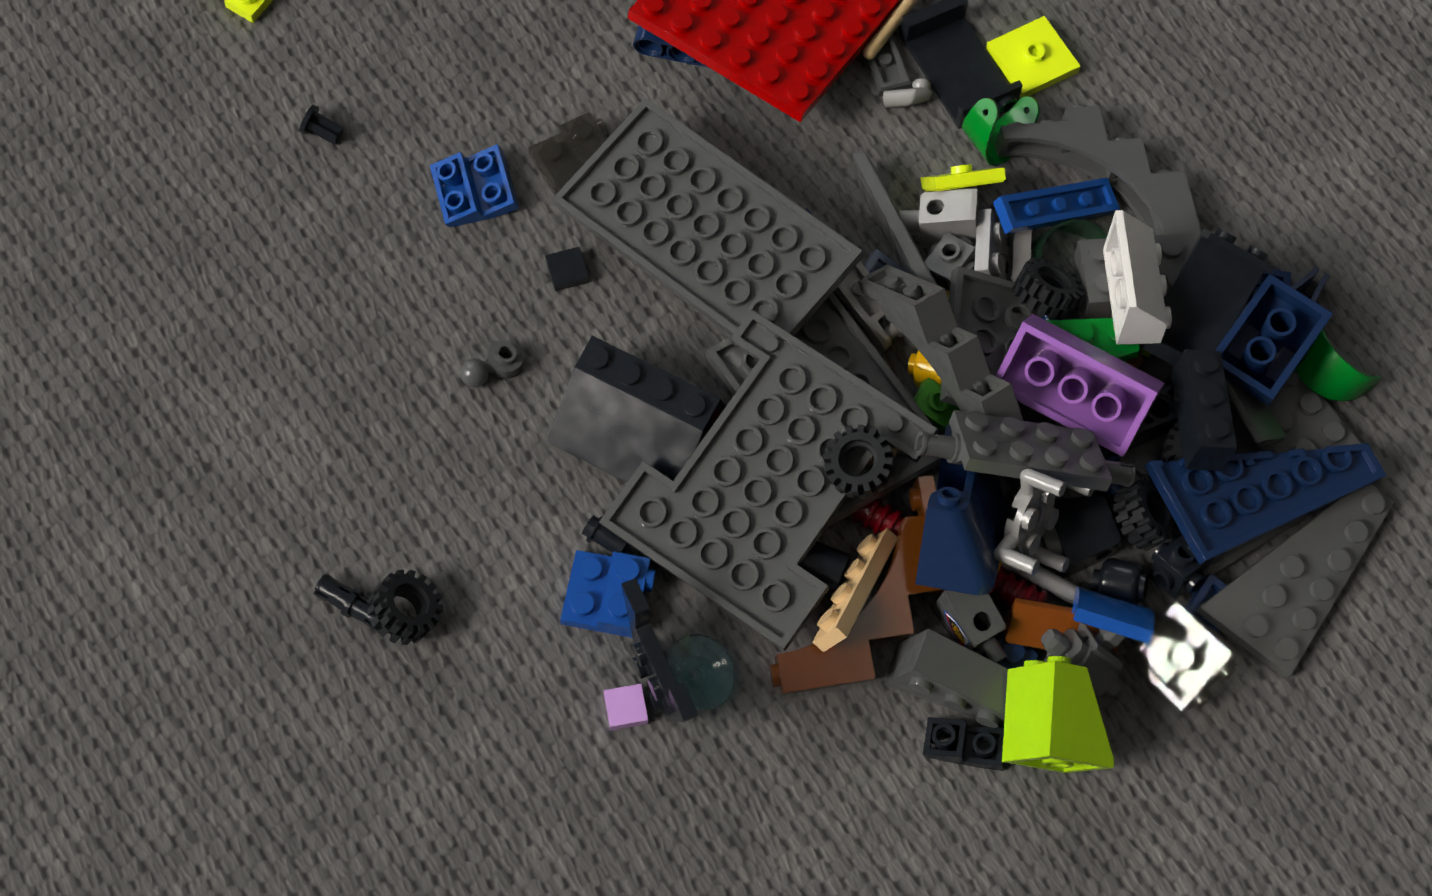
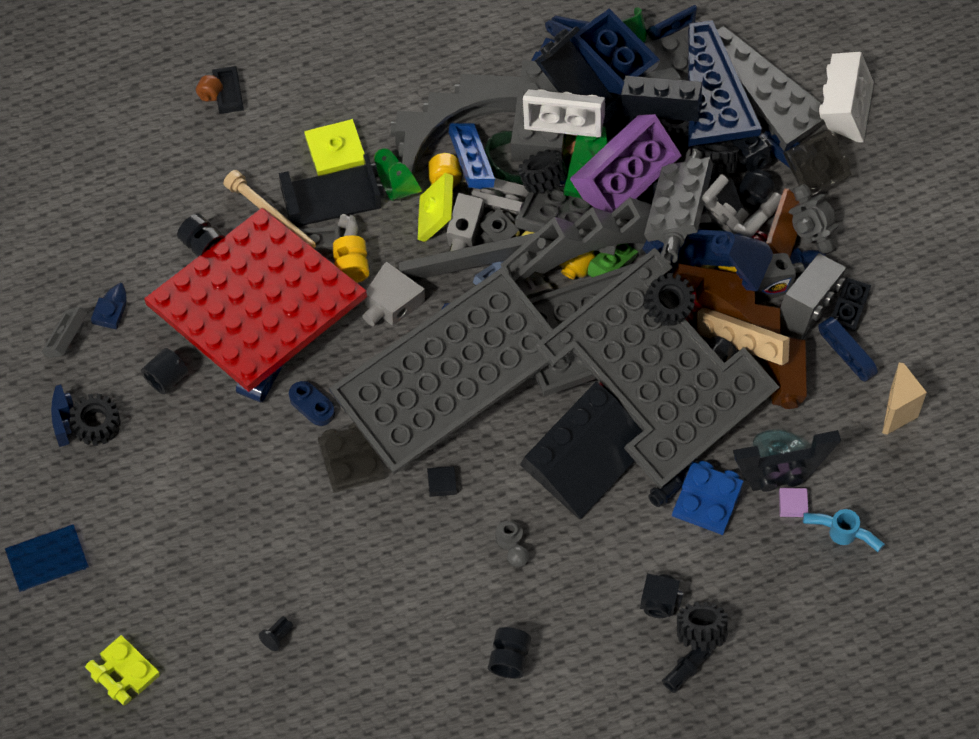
camera: 75 degrees left, 5 degrees down
(331, 382) = (509, 652): none -> black wheel
(446, 552) = (660, 595): none -> black brick
(474, 186) = (356, 533): blue slope -> none
(593, 793) = (842, 536): none -> dark azure piece
(661, 97) = (309, 402): none -> dark blue plate
(807, 823) = (904, 400): none -> tan slope
(819, 158) = (392, 296): none -> light grey torso
(864, 100) = (351, 256): none -> yellow wheel
(885, 746) = (848, 349): none -> dark blue beam
(1027, 177) = (442, 164): none -> yellow head
(1054, 718) = (854, 239): lime slope -> none
(1113, 615) = (789, 189): blue slope -> none
(1319, 687) = (847, 95): none -> white slope
(1373, 433) = (673, 24): none -> dark blue slope

